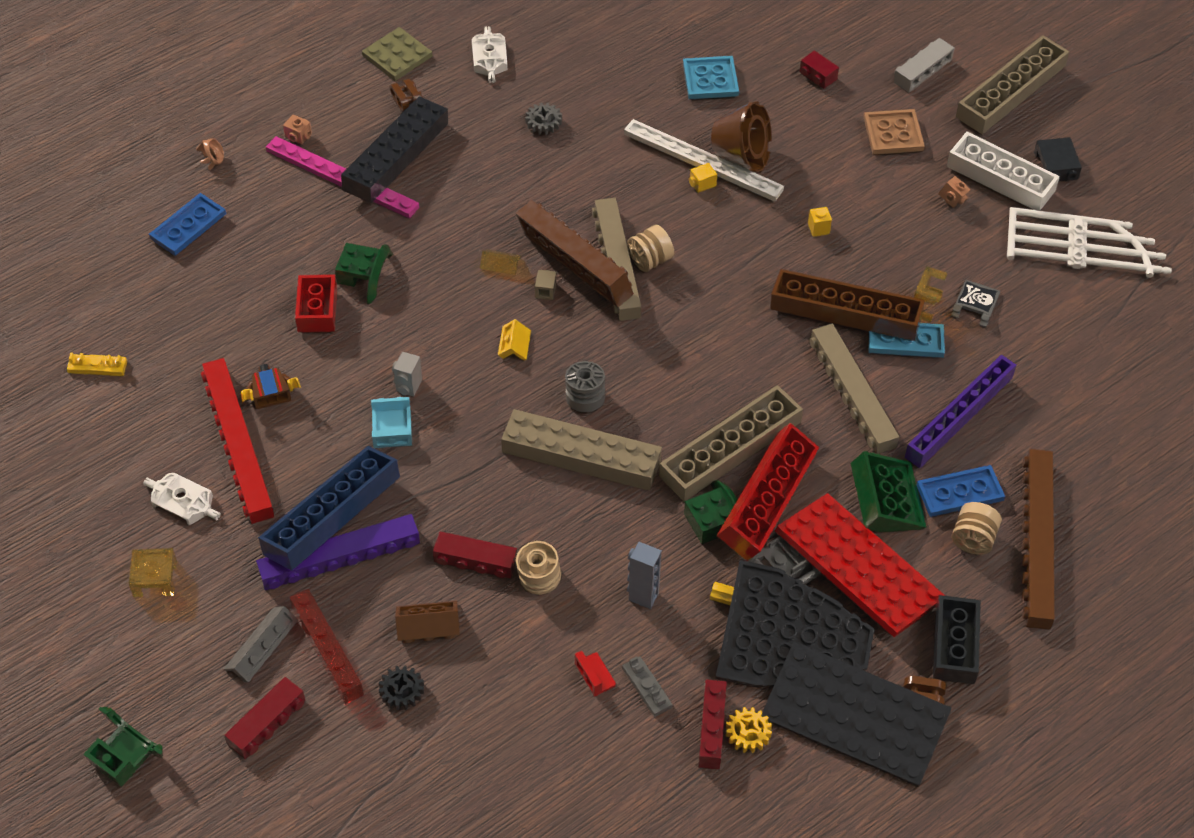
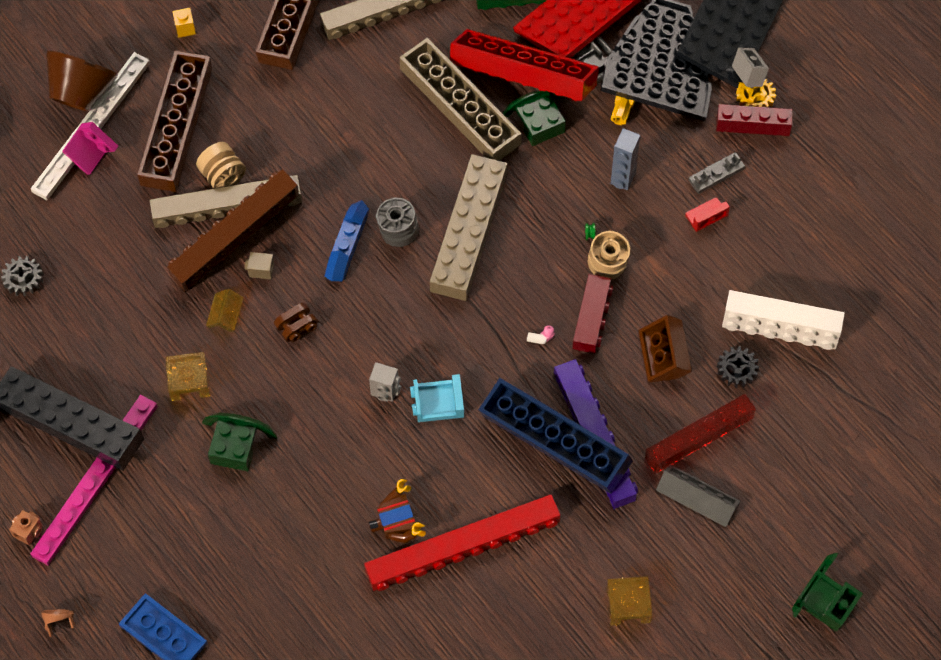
camera: 90 degrees left, 10 degrees up
(191, 507) = (530, 604): white plate -> none
(265, 718) = (779, 479): dark red brick -> none
(316, 303) = (286, 480): red brick -> none
(431, 229) = (187, 374): none -> clear yellow panel
(448, 730) = (783, 320): none -> white brick
(453, 513) = (543, 337): none -> arm
(479, 319) = (296, 322): none -> reddish brown brick
(514, 340) = (332, 294): yellow panel -> none
(568, 350) = (346, 241): none -> blue brick
(574, 558) = (589, 231): none -> green bush
(673, 153) = (88, 146): none -> dark pink bracket
(703, 177) = (118, 124): yellow brick -> none
(705, 215) = (175, 121): none -> reddish brown brick
(771, 711) = (750, 67): none -> light grey brick

